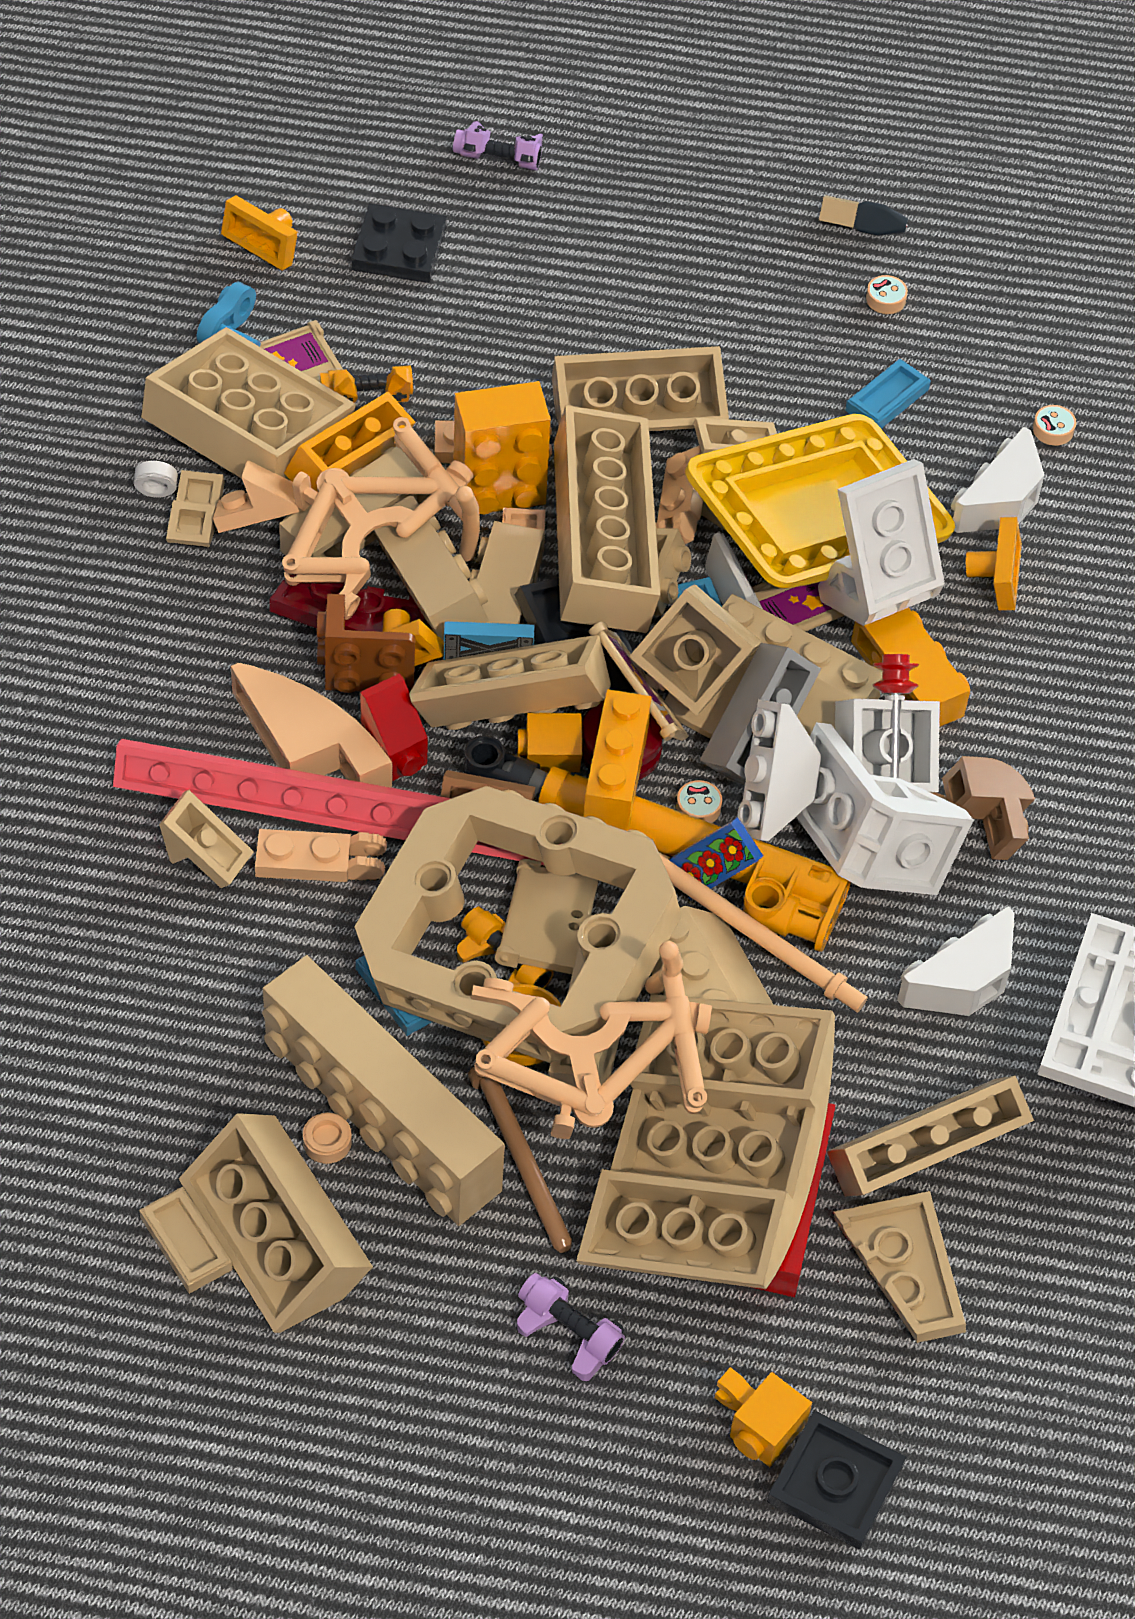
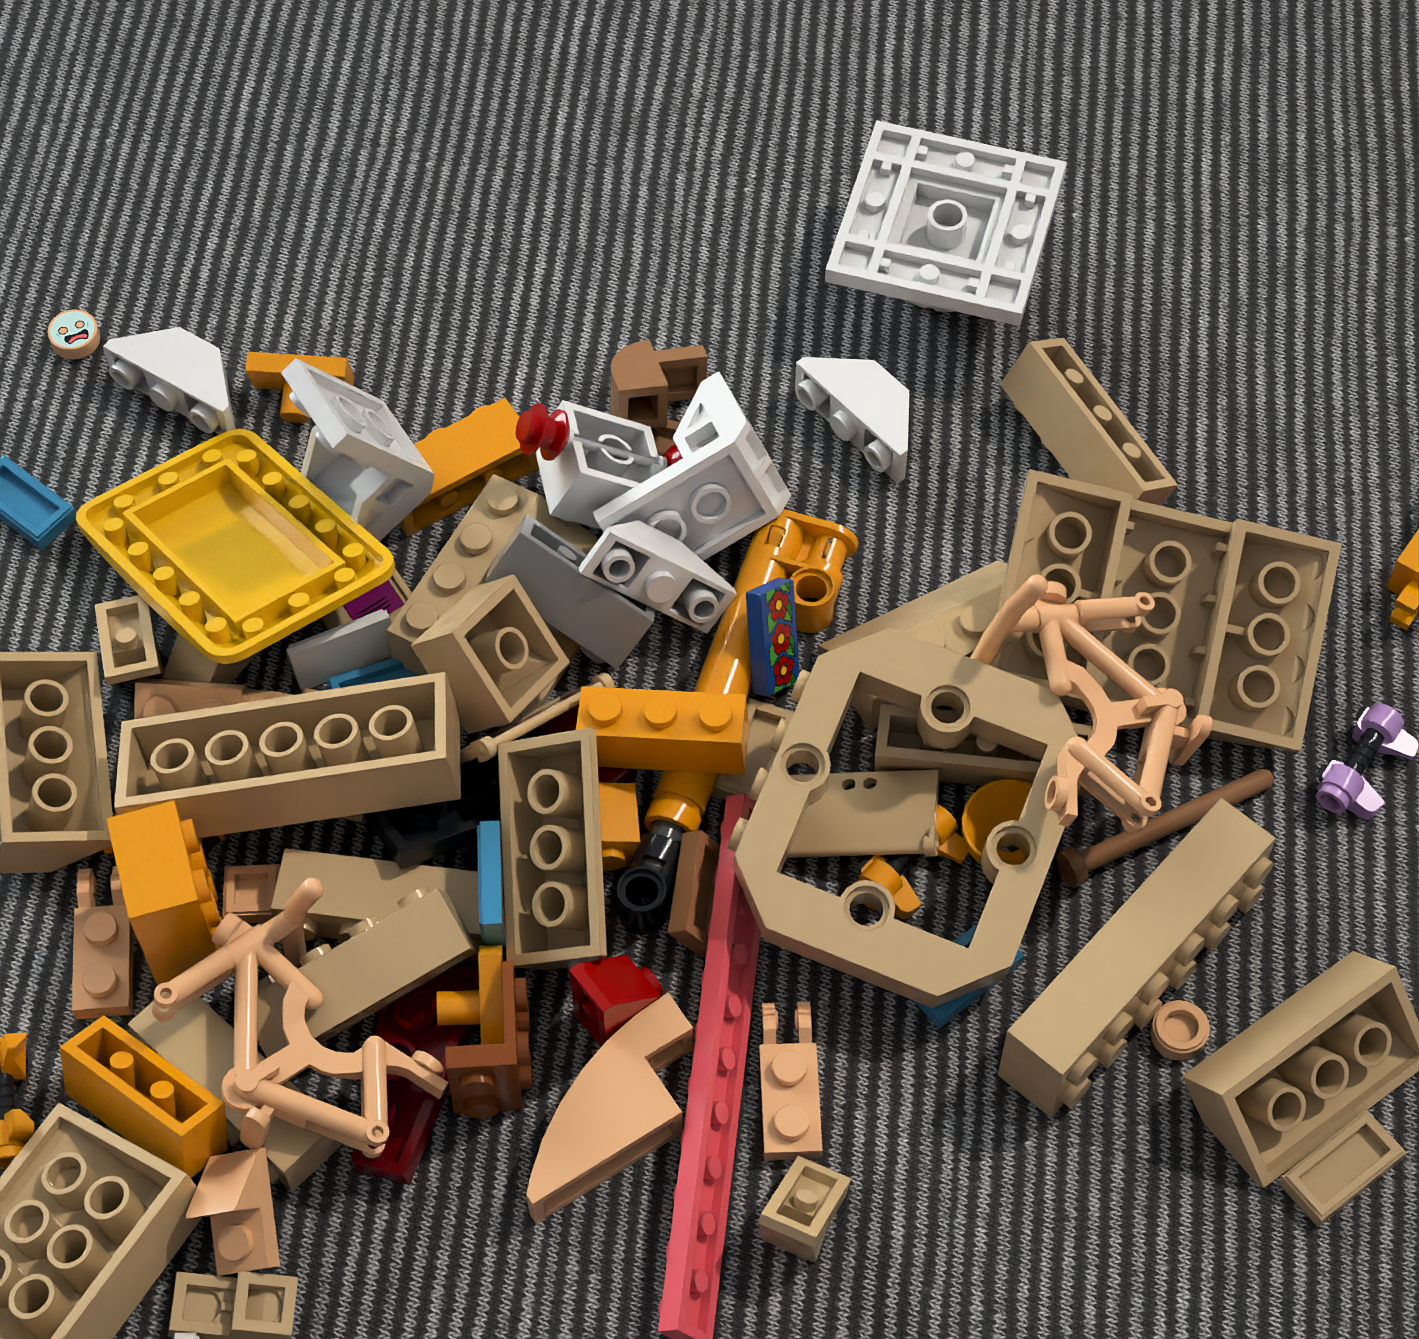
camera: 90 degrees left, 5 degrees up
(700, 800) = (664, 671): tile -> none
(834, 985) = (899, 533): light nougat bar -> none
(908, 1261) = (1228, 456): tan wing -> none

